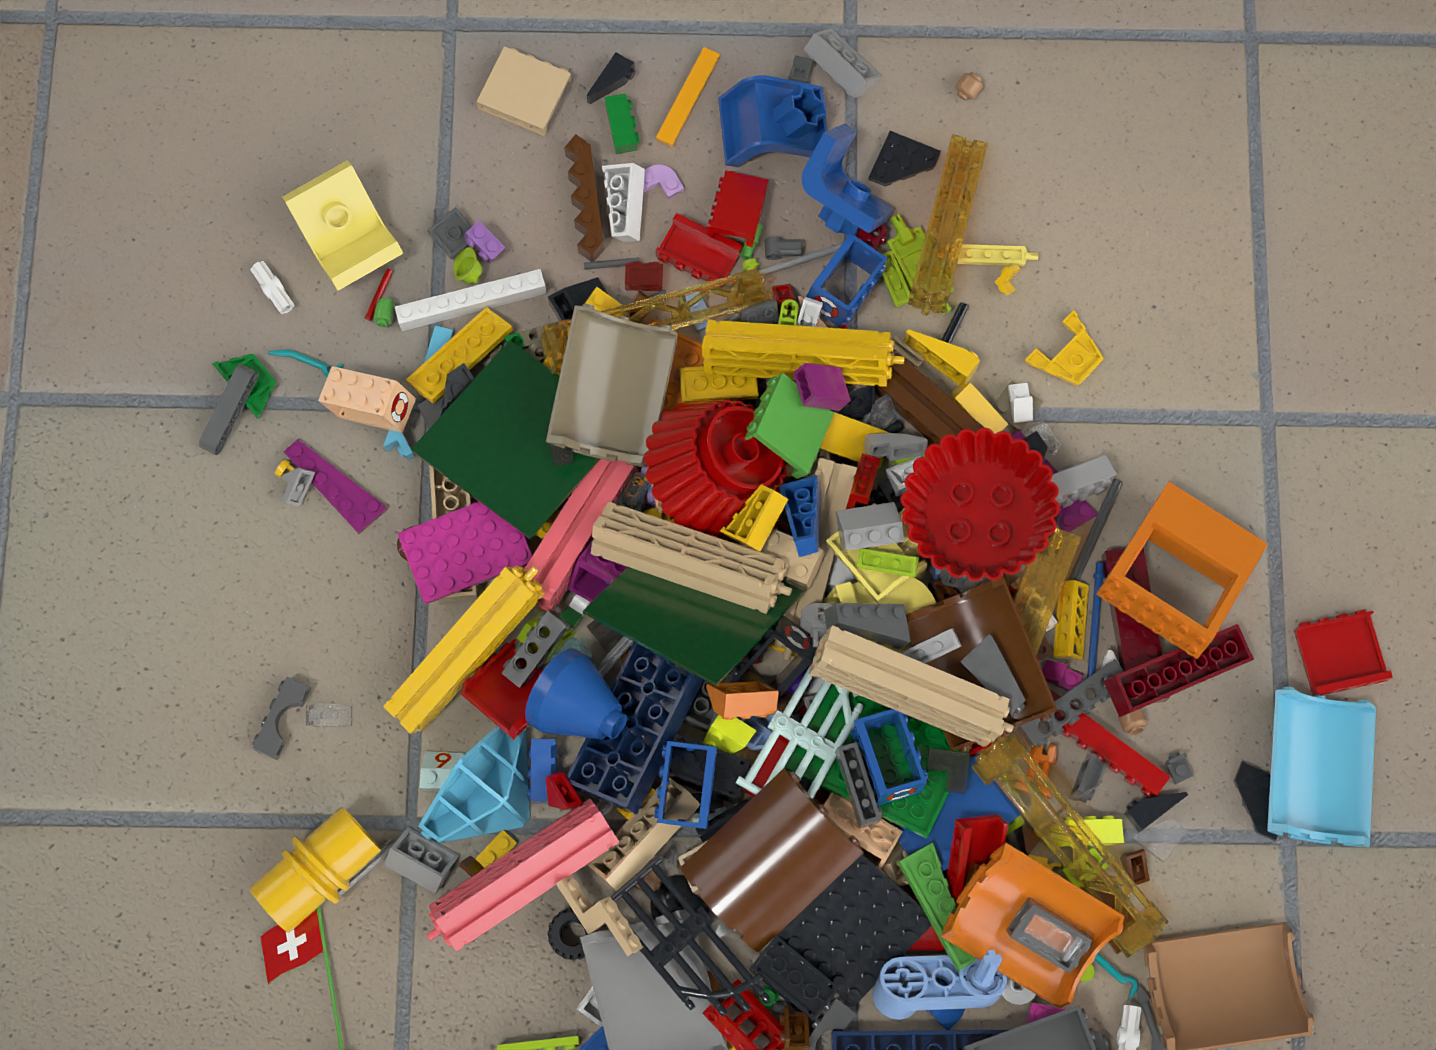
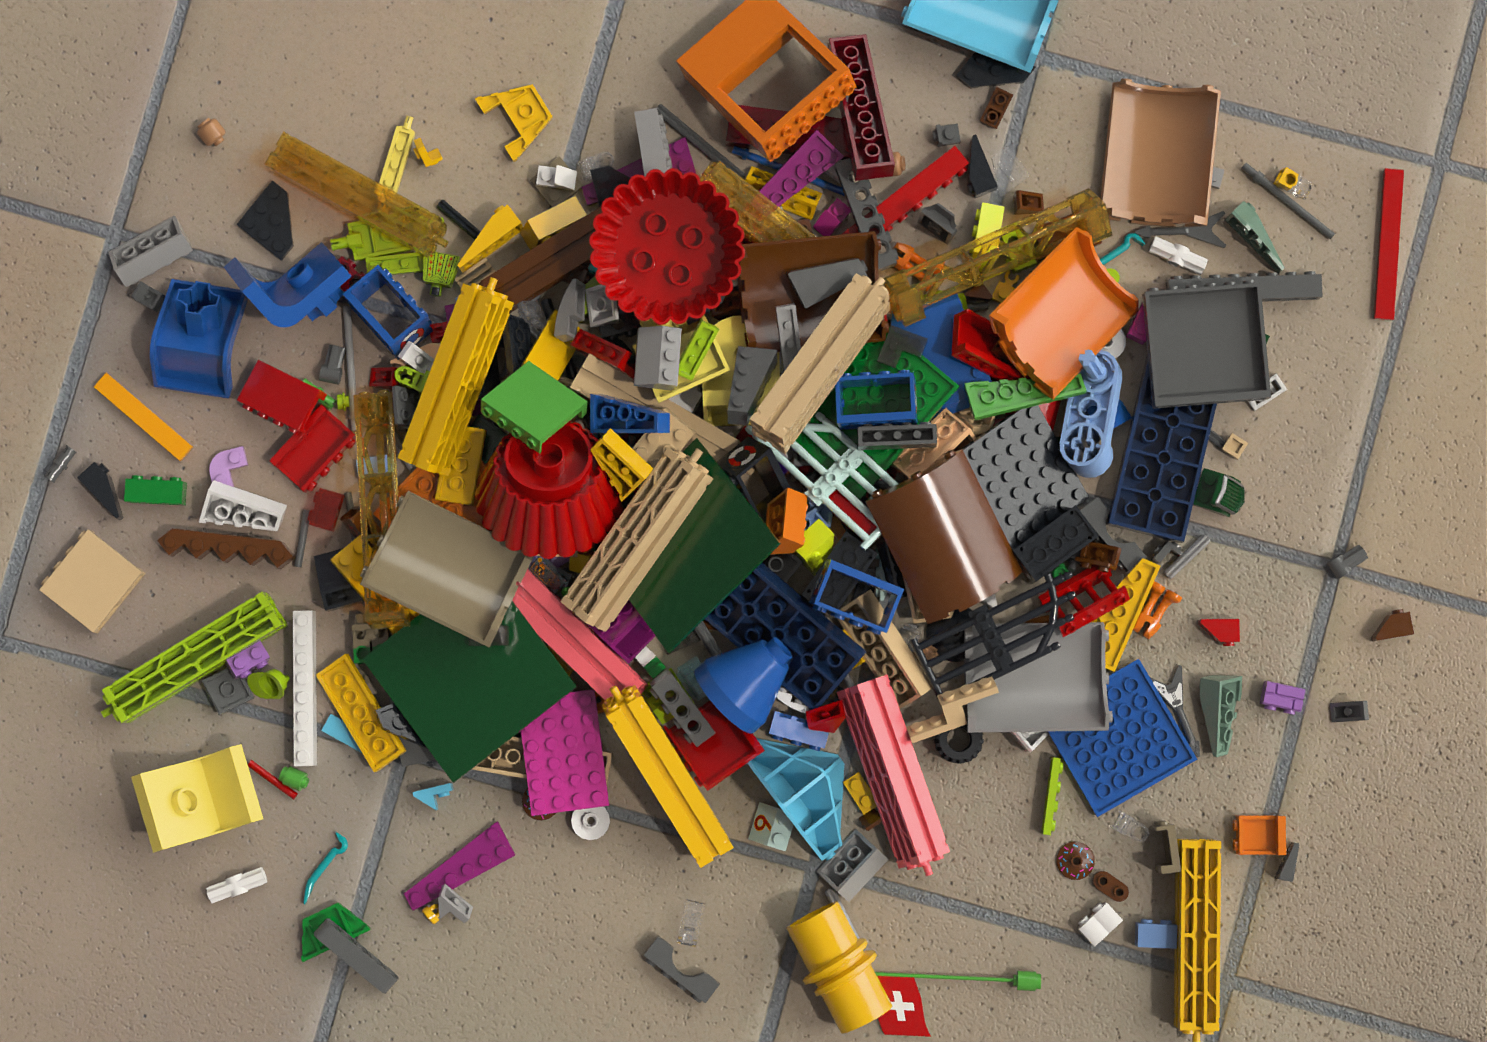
camera: 75 degrees left, 10 degrees up
(367, 399) = (386, 814): light nougat hose -> none
(397, 592) = (590, 831): none -> white dish
(474, 193) = (192, 659): none -> lime piece
(571, 752) = (784, 696): none -> white slope
(624, 37) = (60, 464): none -> dark grey pin
(814, 621) = (729, 434): light grey hinge -> none
(821, 386) = (502, 365): magenta brick -> none
(898, 319) = (440, 271): none -> lime torso
(1049, 935) = (1074, 300): piece -> none
(1100, 629) = (801, 168): none -> magenta wing
(1222, 811) = (996, 107): none -> reddish brown slope

